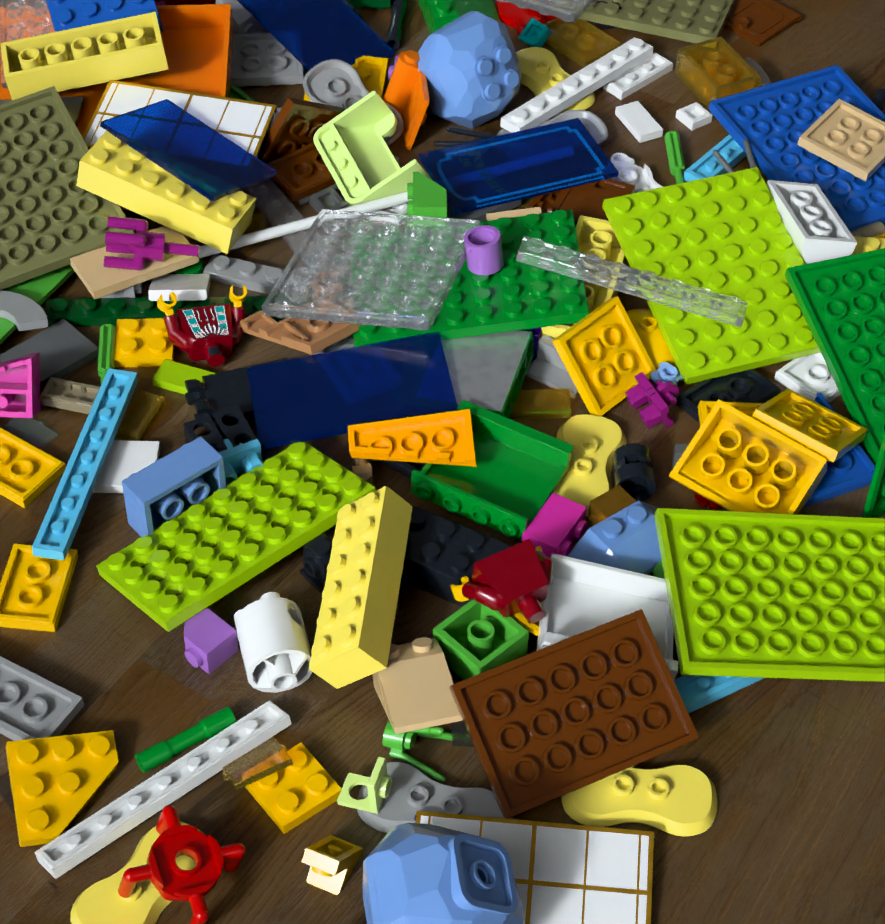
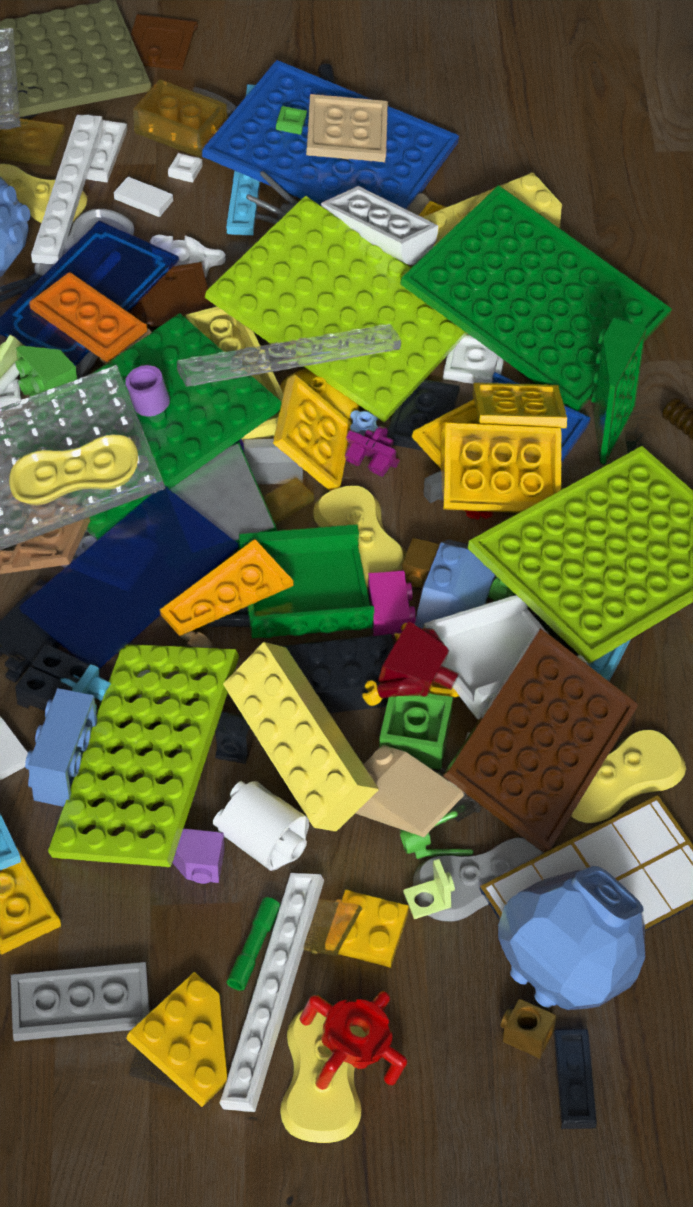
camera: 35 degrees left, 5 degrees up
(331, 863) = (451, 965): yellow slope -> none
(354, 274) = (51, 474): none -> light yellow plate
(499, 180) = (88, 316): none -> orange tile
(634, 470) = (409, 519): black wheel -> none
(675, 155) = (204, 216): bright green axle -> none
(806, 112) = (291, 120): none -> bright green tile

